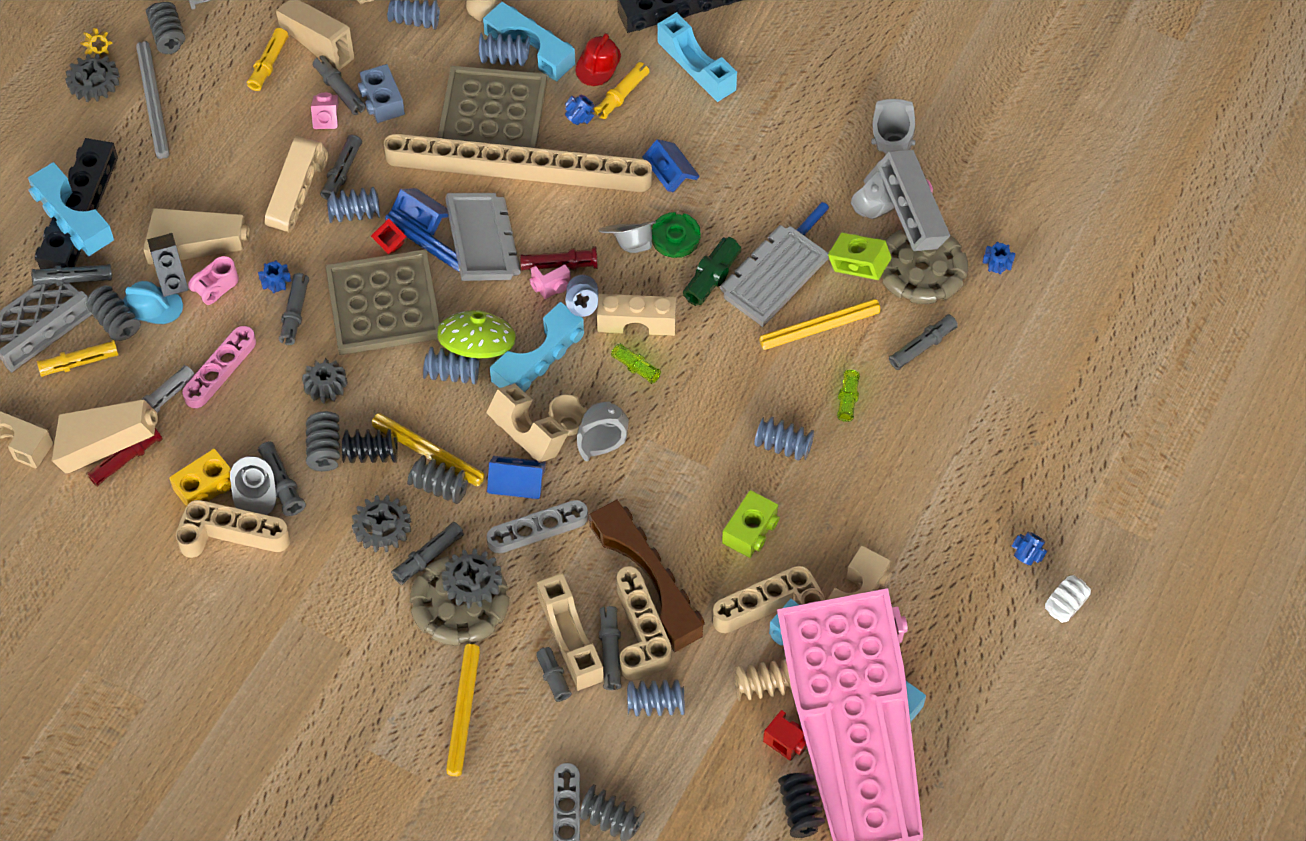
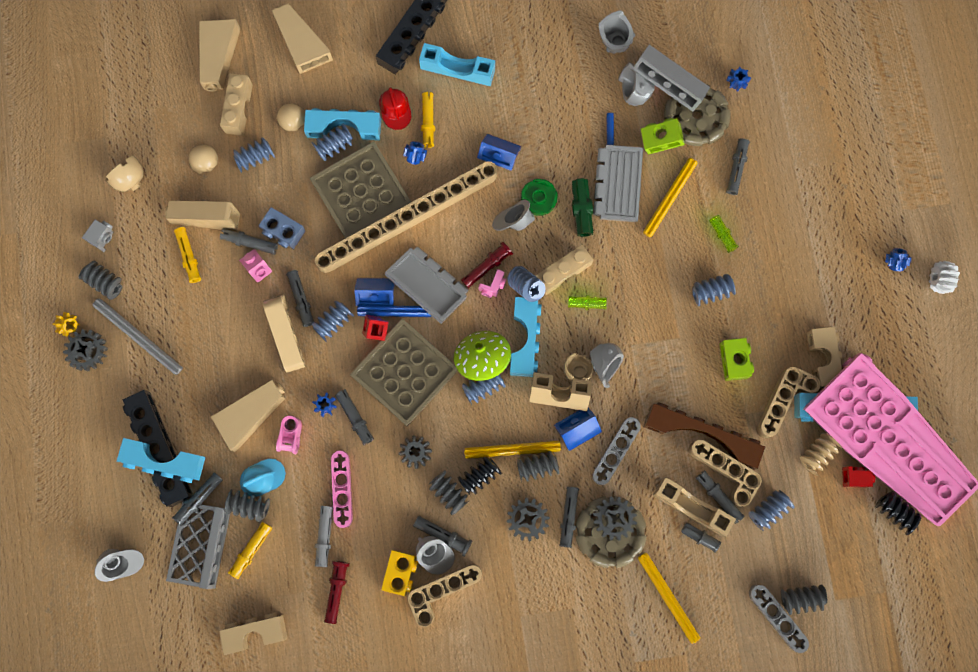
camera: 35 degrees left, 20 degrees up
(101, 431) = (310, 595): tan slope -> none
(168, 264) = (255, 450): brick -> none

